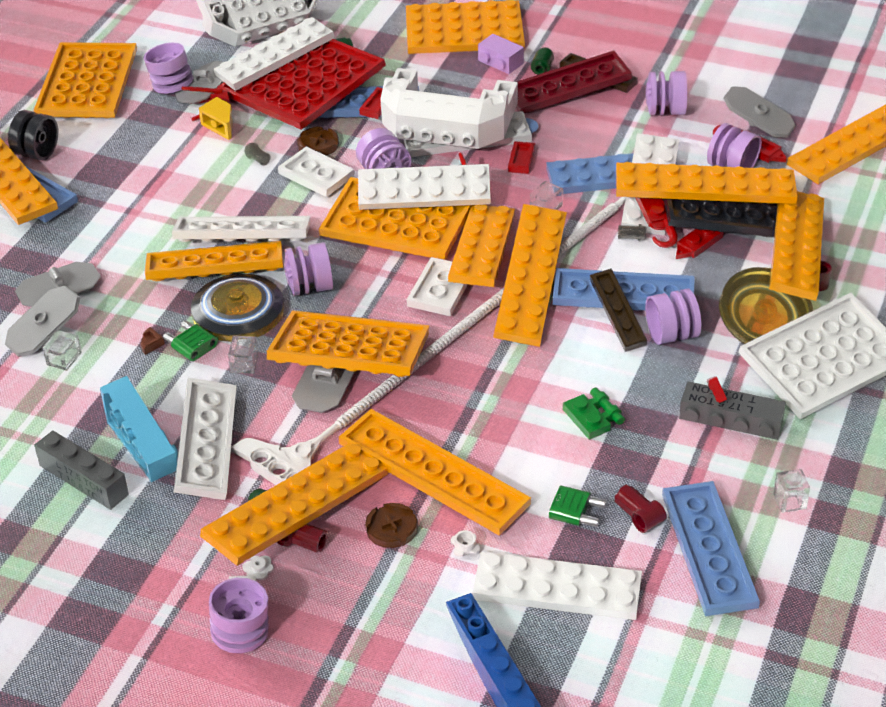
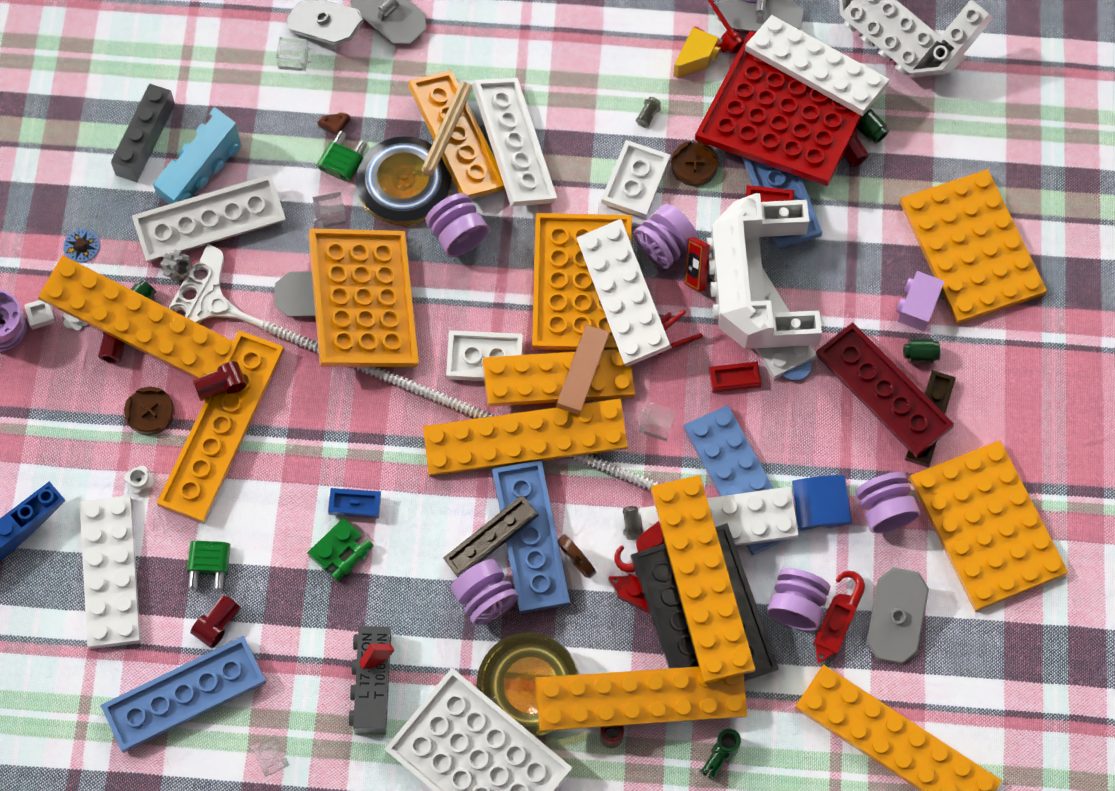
camera: 70 degrees right, 25 degrees up
(176, 550) = (81, 245): none -> piece
(209, 255) = (446, 128): none -> tan axle
(245, 469) = (176, 265): none -> light grey gear
(392, 450) = (226, 379): none -> dark red piece
(418, 144) = (697, 264): none -> red tile
(487, 219) = (582, 370): none -> nougat tile
(551, 393) = (354, 503): none -> blue plate
(648, 126) = (822, 502): none -> blue slope
(657, 257) = (578, 558): none -> reddish brown tile
(708, 62) = (988, 525): none -> light orange plate
(846, 219) = (720, 753): none -> dark green pin

